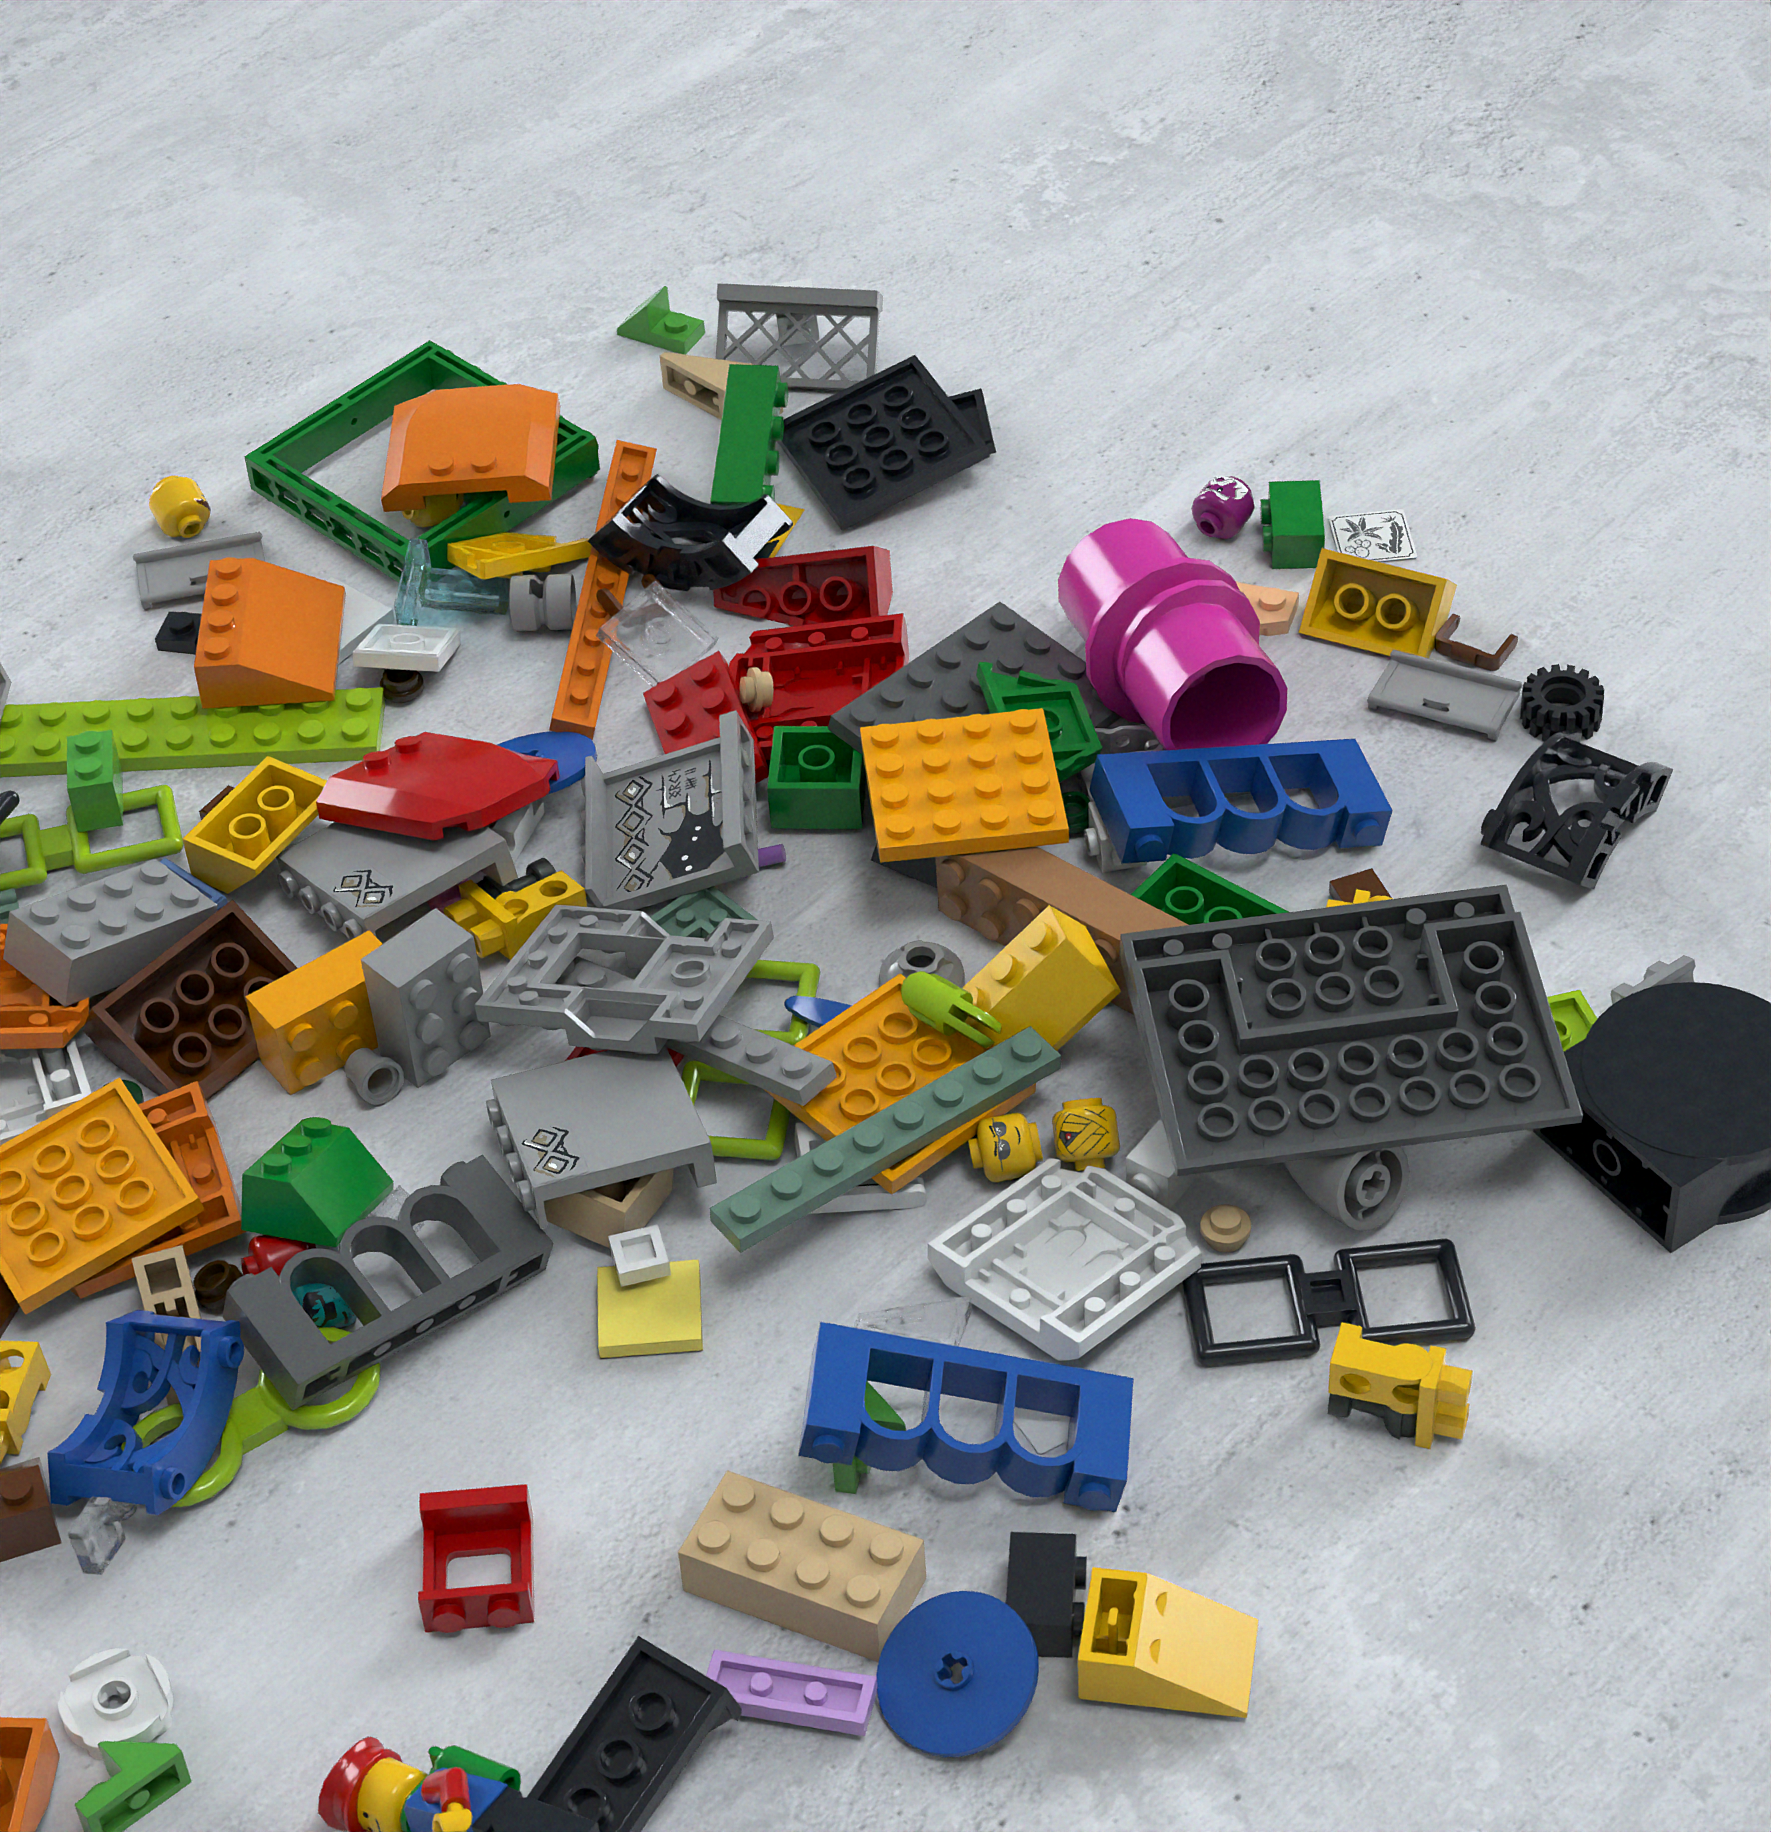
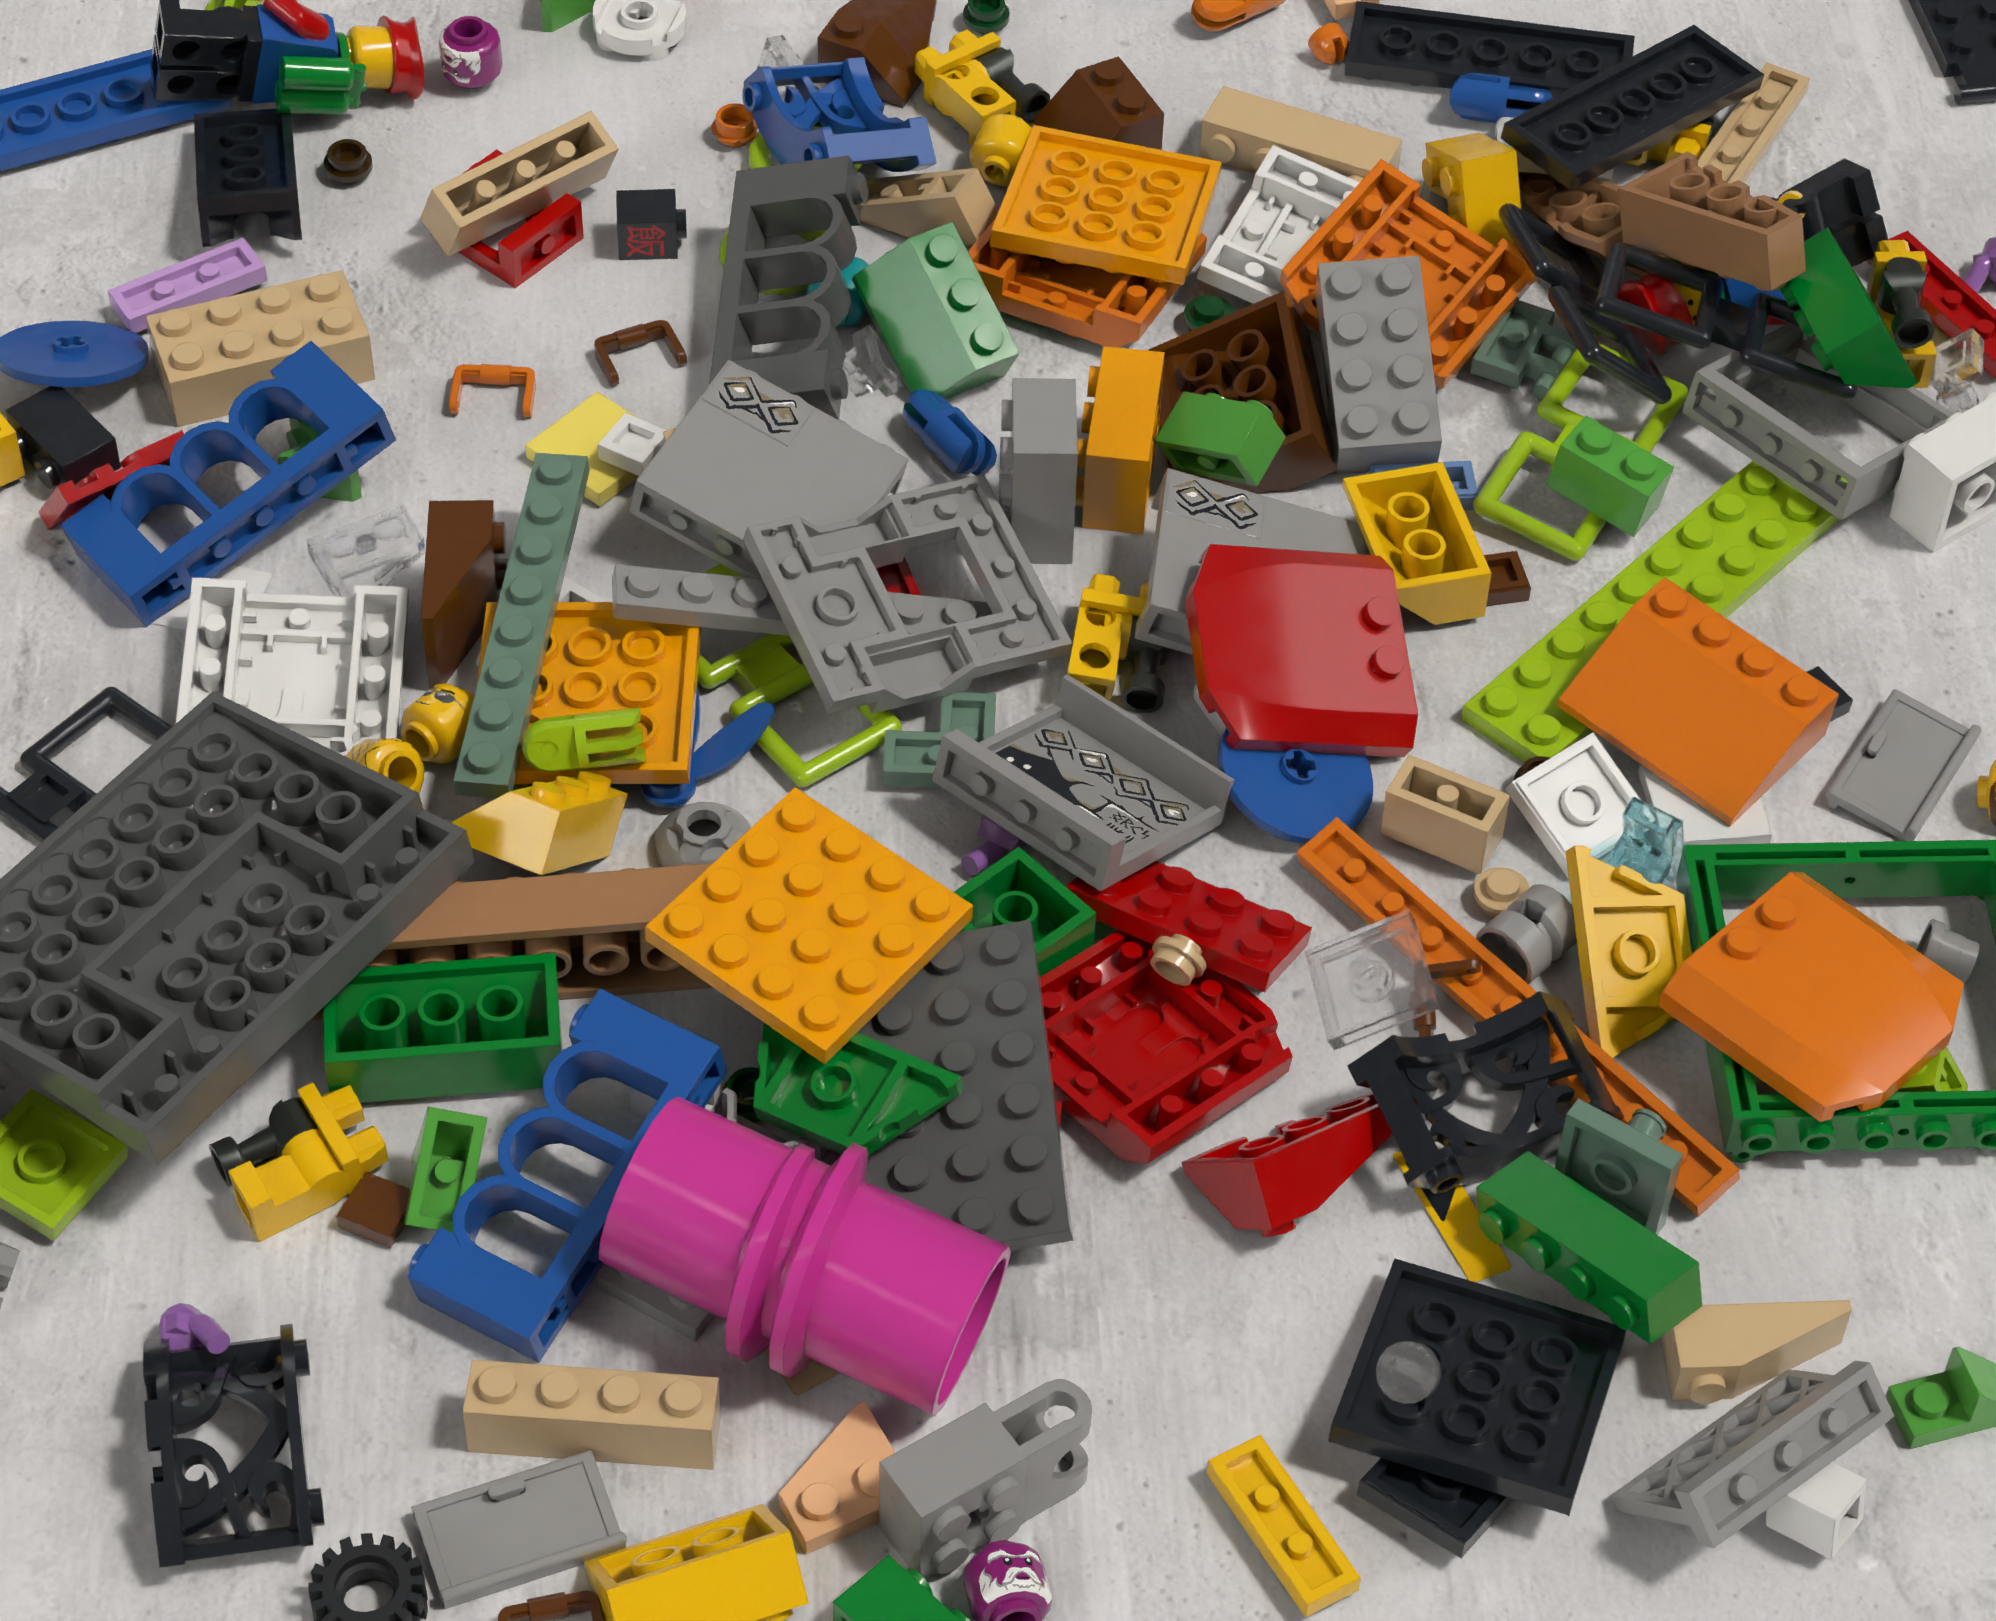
camera: 130 degrees right, 5 degrees up
(55, 1322) = (999, 147): none -> yellow head
(191, 1514) = (734, 125): none -> orange plate
(275, 942) = (1220, 438): none -> bright green brick
(302, 1748) = (470, 52): none -> magenta head
(356, 480) = (1949, 949): none -> light grey piece
(382, 1465) = (649, 224): none -> black brick
(414, 1129) = (949, 433): none -> blue arm
(449, 1535) = (518, 183): none -> tan brick
(492, 679) = (1444, 814): none -> tan brick
(513, 648) = (1498, 889): none -> tan plate
(516, 1390) = (633, 337): none -> reddish brown piece
(522, 1735) = (347, 161): none -> dark brown plate
(651, 1434) = (493, 375): none -> orange piece
(675, 465) = (1621, 1161): none -> sand green tile
(889, 1215) = (459, 580): none -> reddish brown slope
(922, 429) = (1408, 1372): none -> clear tile
(1049, 462) = (1283, 1525): none -> yellow plate
(1060, 1498) = (70, 498): none -> red wing
(1201, 522) = (982, 1477): none -> light grey brick
(1302, 866) = (444, 1166): none -> bright green slope
(1355, 702) = (581, 1409): none -> tan brick
(1542, 887) = (190, 1328): none -> medium lavender plate

